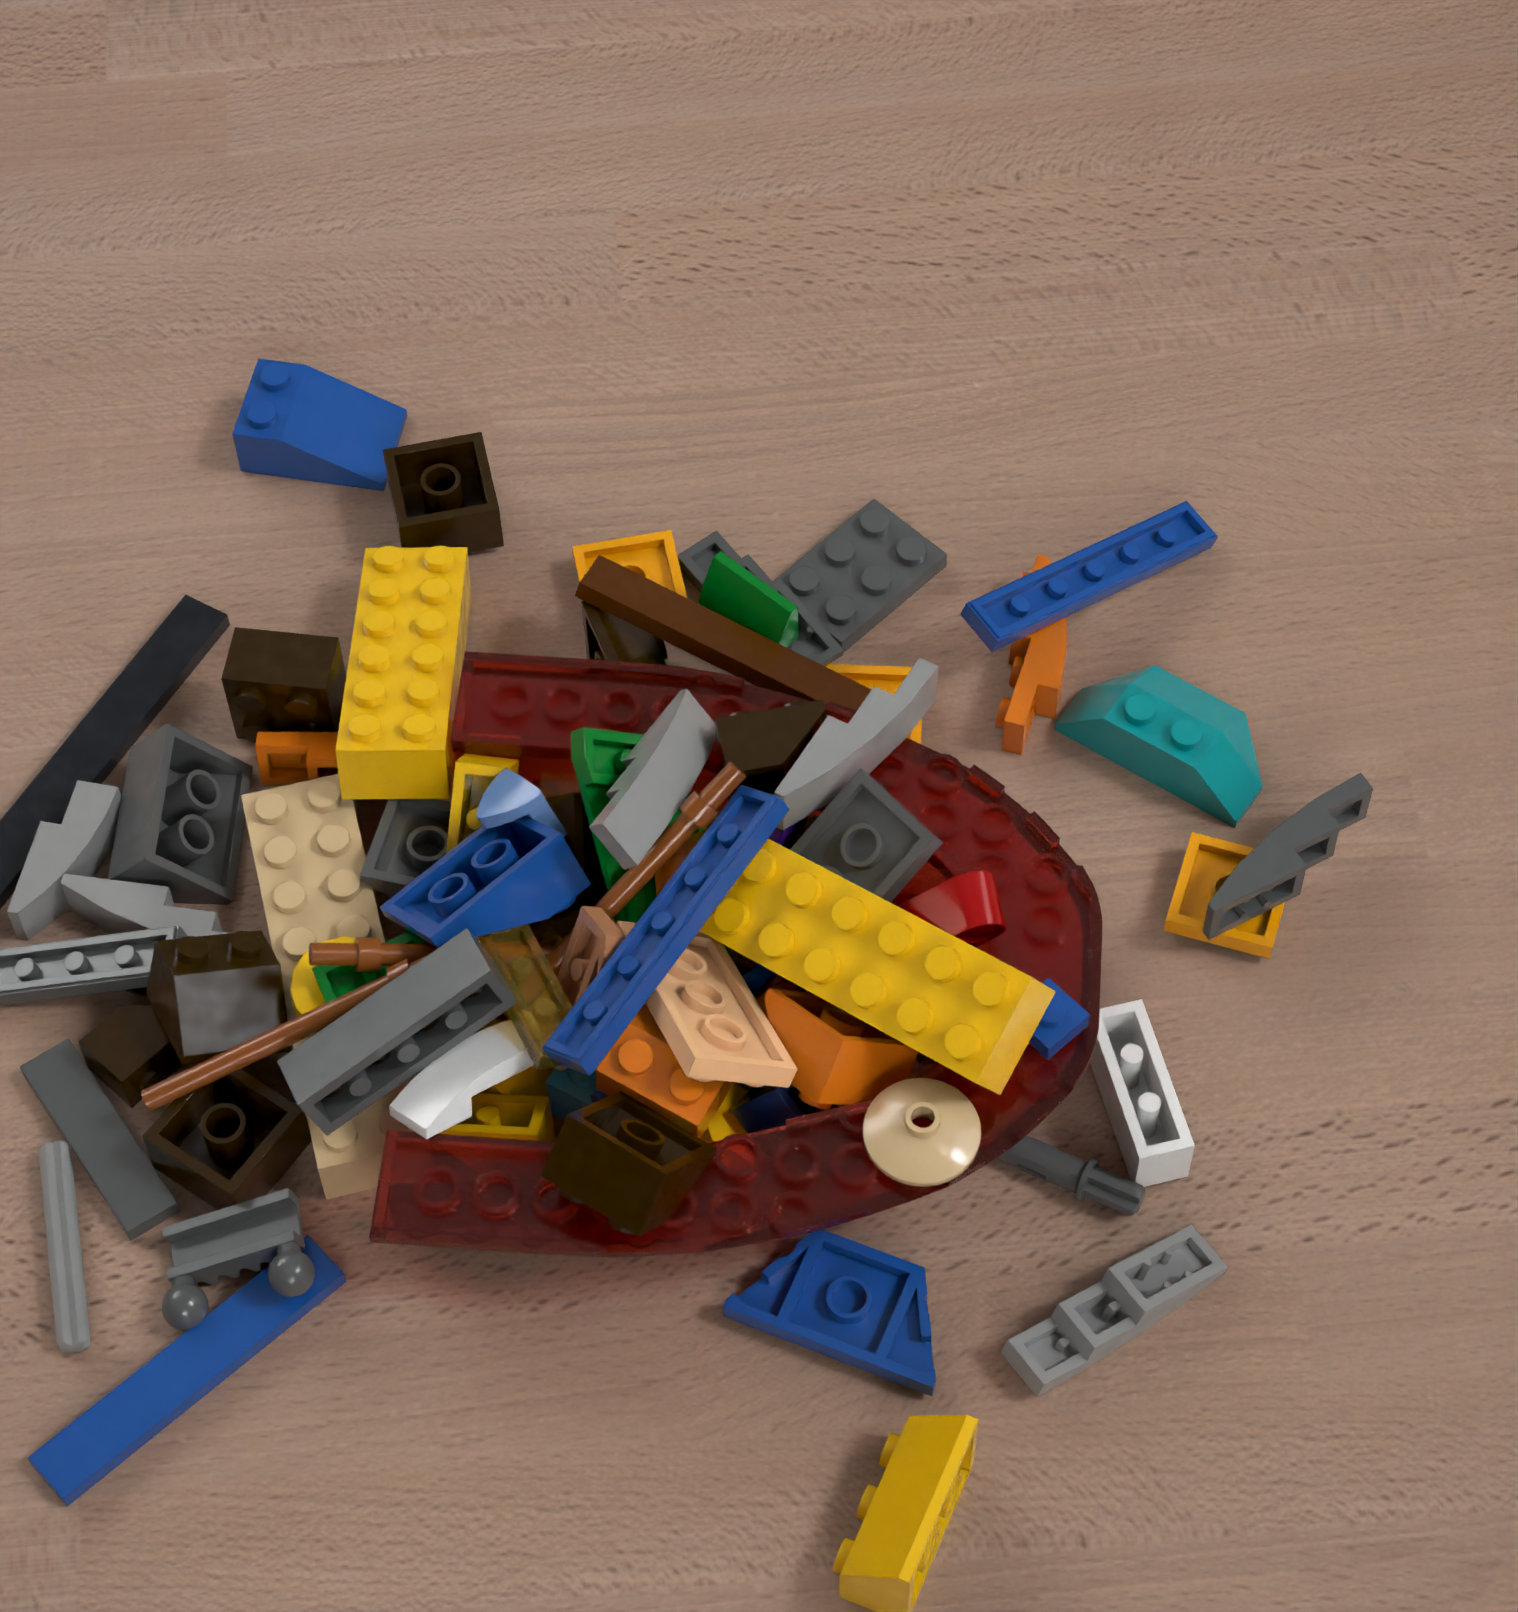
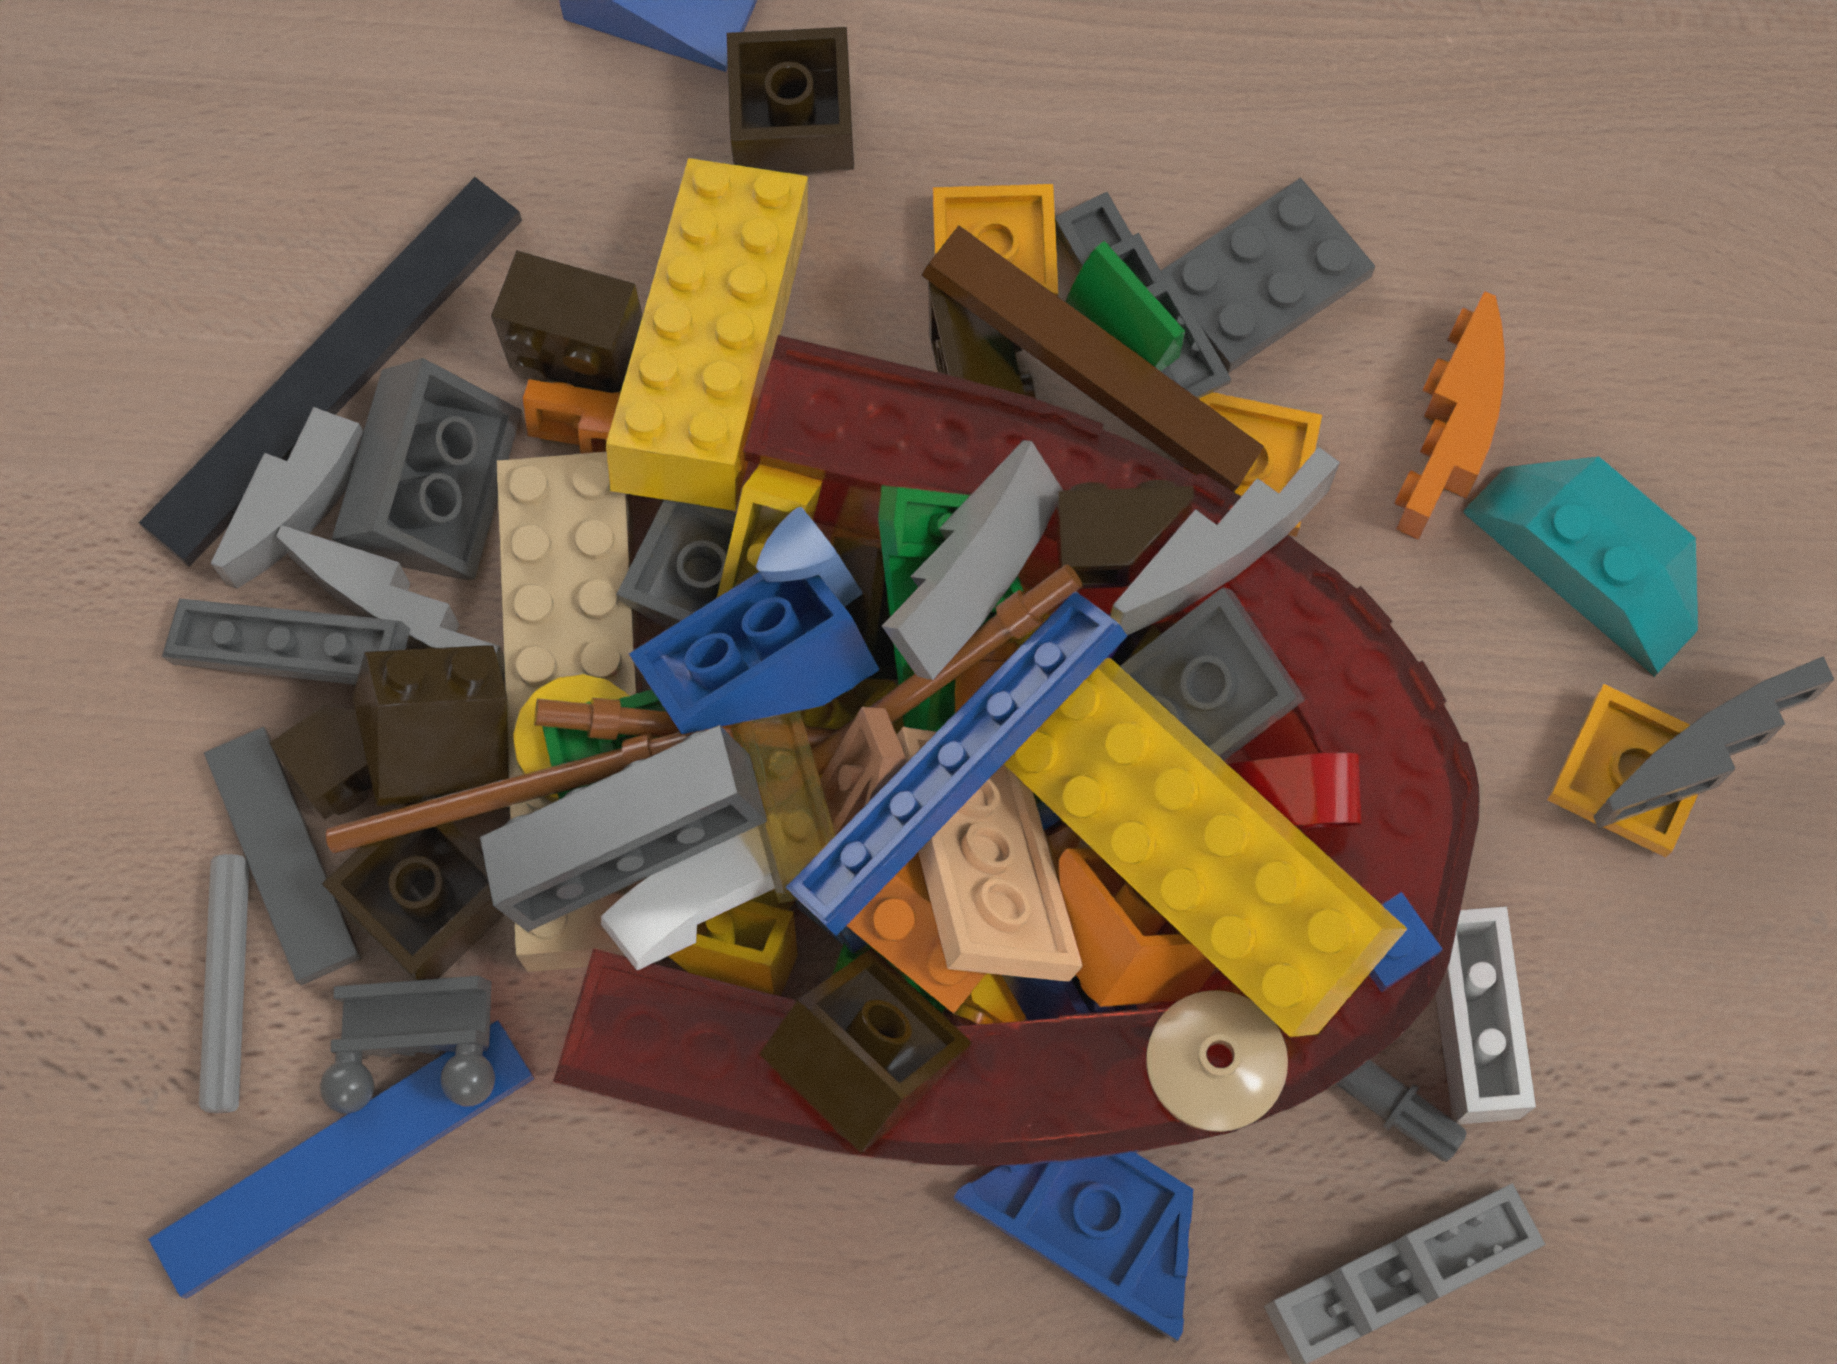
camera: 10 degrees right, 15 degrees up
(1088, 576) = (1540, 330): blue tile -> none

